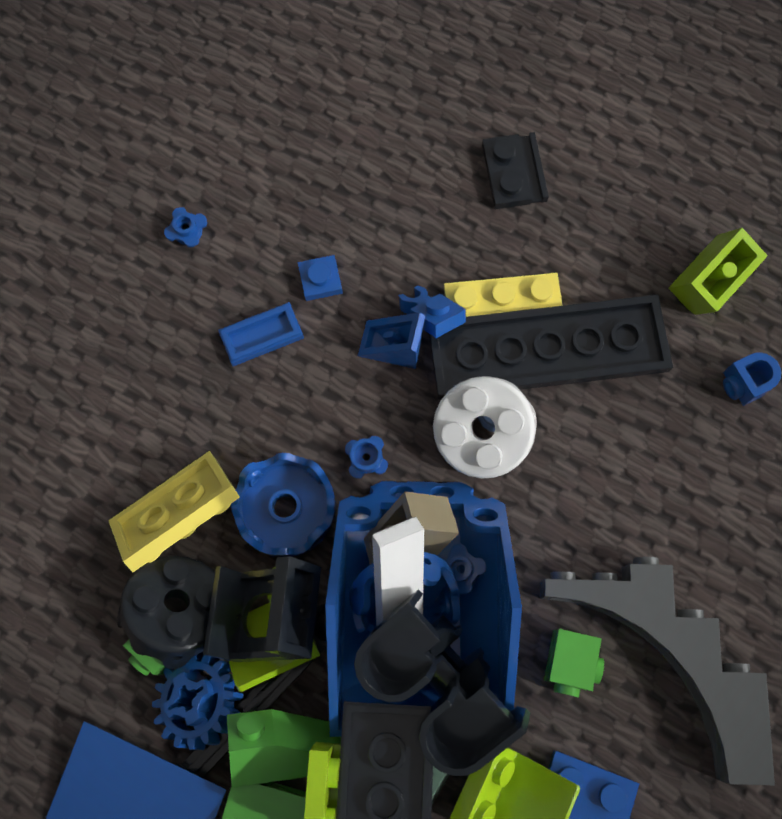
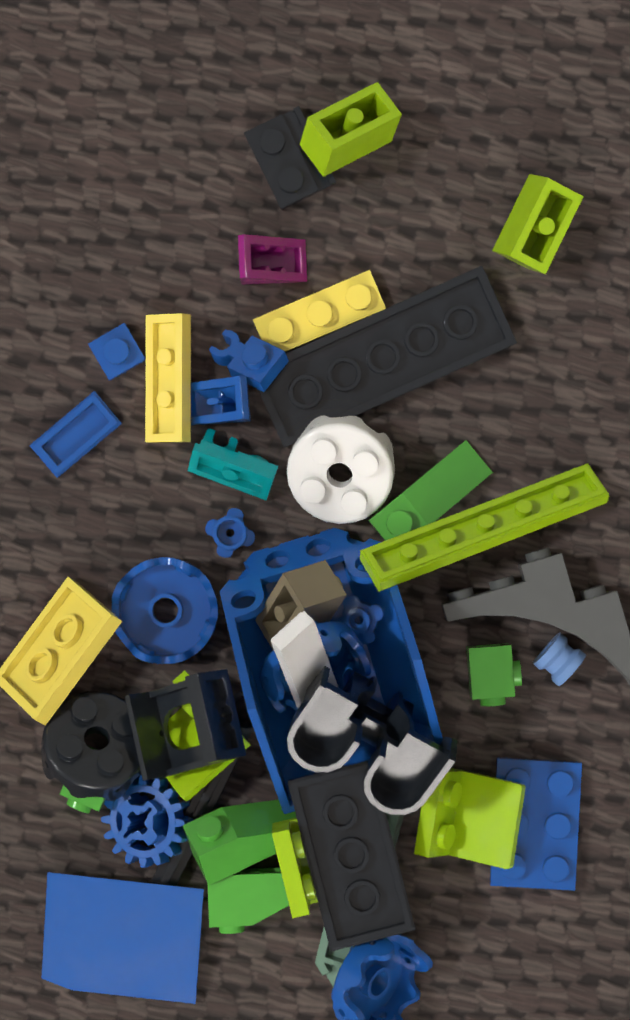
camera: 25 degrees left, 15 degrees up
(355, 309) = (168, 378): none -> light yellow plate
(387, 399) = (236, 470): none -> teal plate
(473, 238) = (271, 259): none -> magenta slope
(555, 479) = (432, 493): none -> bright green slope
(574, 151) = (350, 129): none -> lime brick
(602, 515) = (483, 527): none -> lime tile
(642, 670) = (559, 659): none -> medium blue wheel
(751, 377) = (600, 329): blue plate -> none

